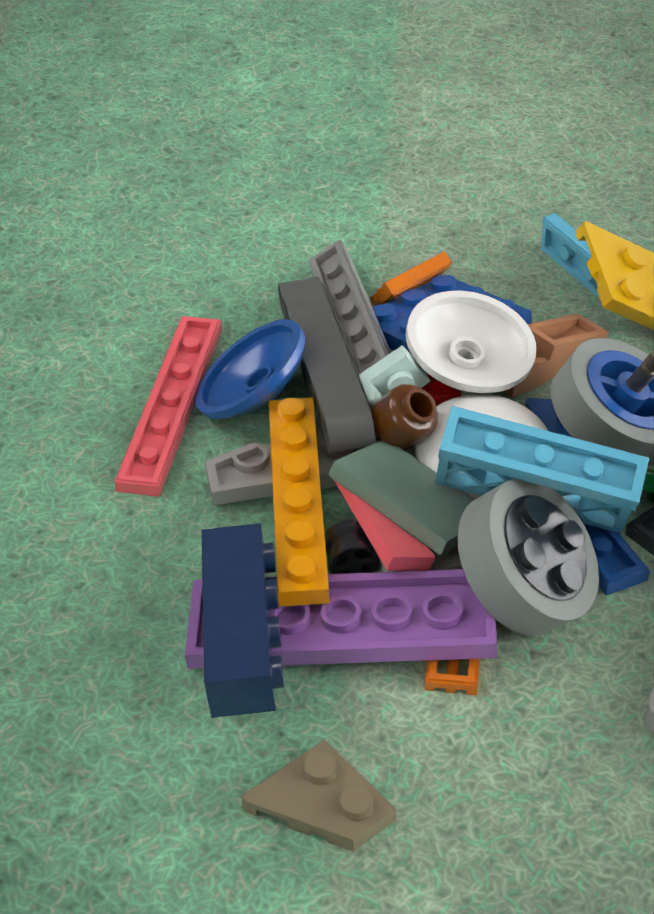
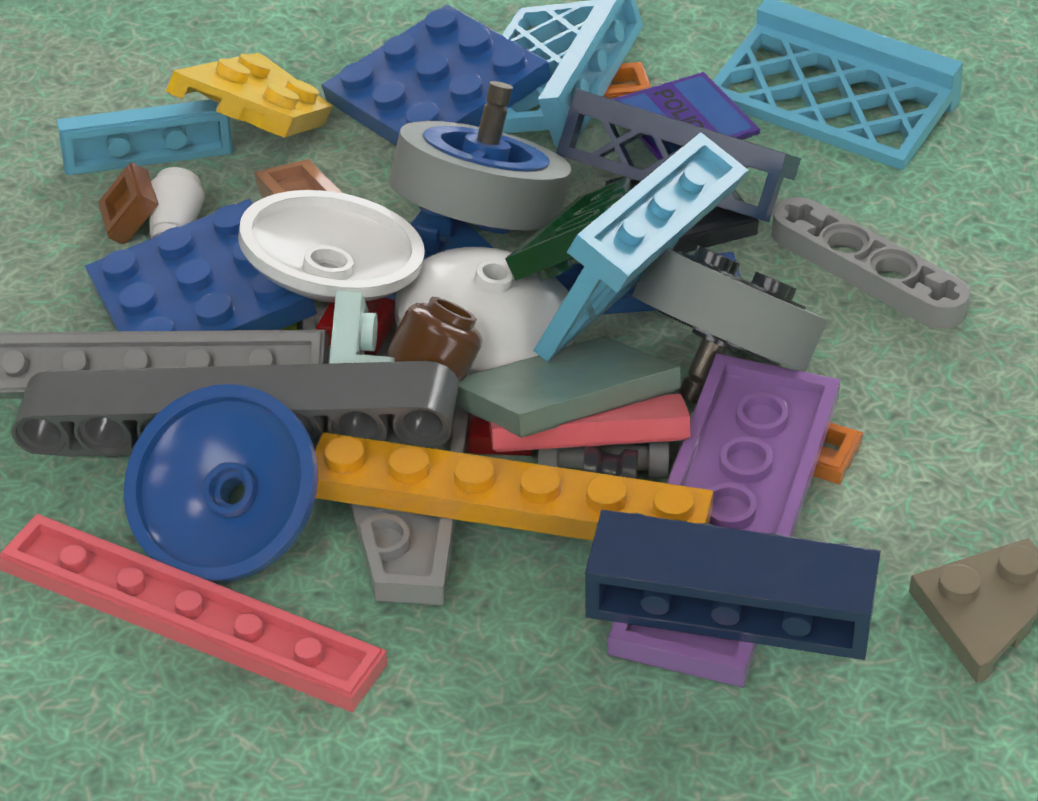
camera: 75 degrees left, 0 degrees up
(411, 279) = (74, 300): orange tile -> none
(510, 270) = (127, 203): none -> dark orange tile
(524, 289) = (178, 199): none -> white cone

